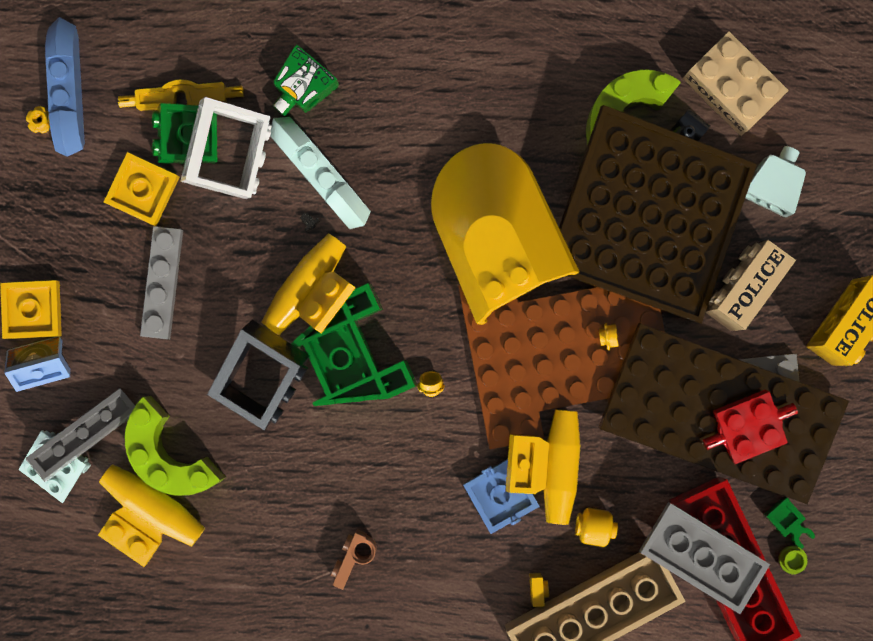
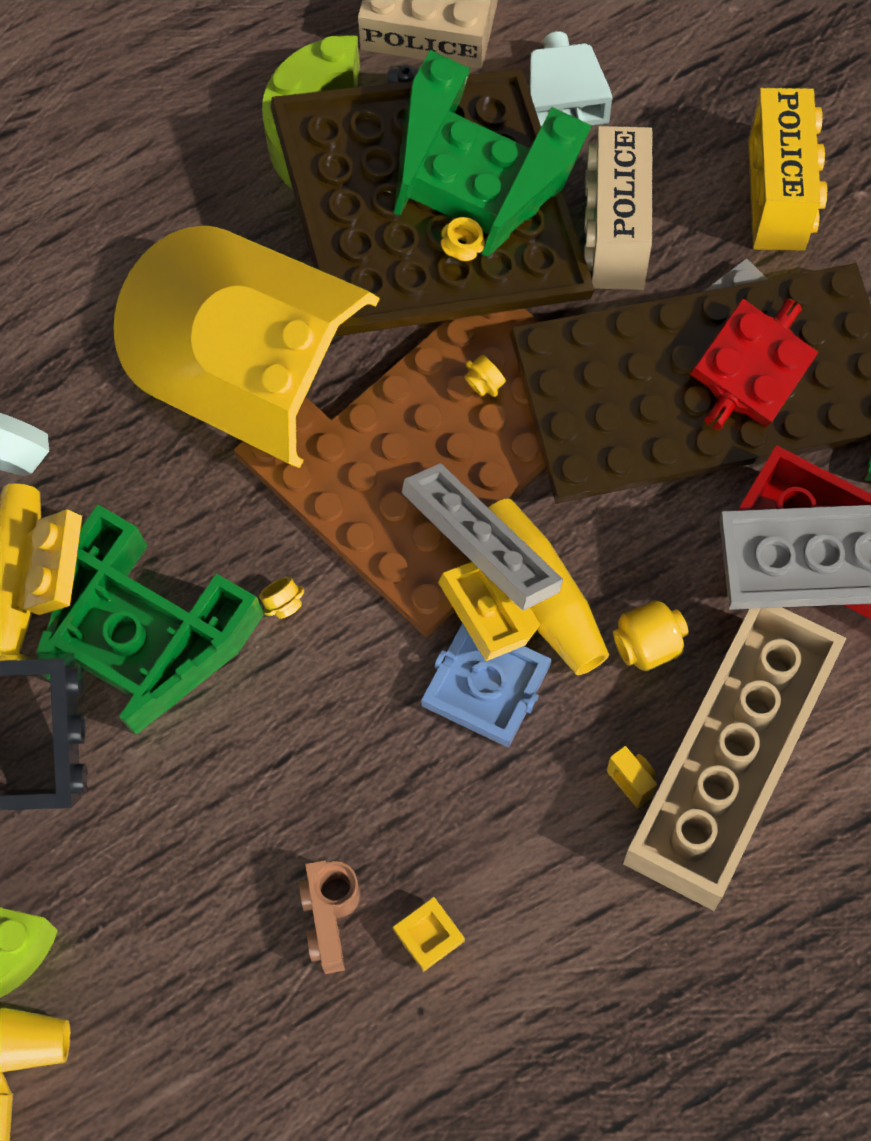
camera: 30 degrees left, 20 degrees down
(392, 598) = (428, 934): none -> yellow plate
(546, 428) = (482, 536): none -> light grey plate
(655, 260) = (466, 230): none -> yellow plate
(682, 217) = (472, 169): none -> green wedge

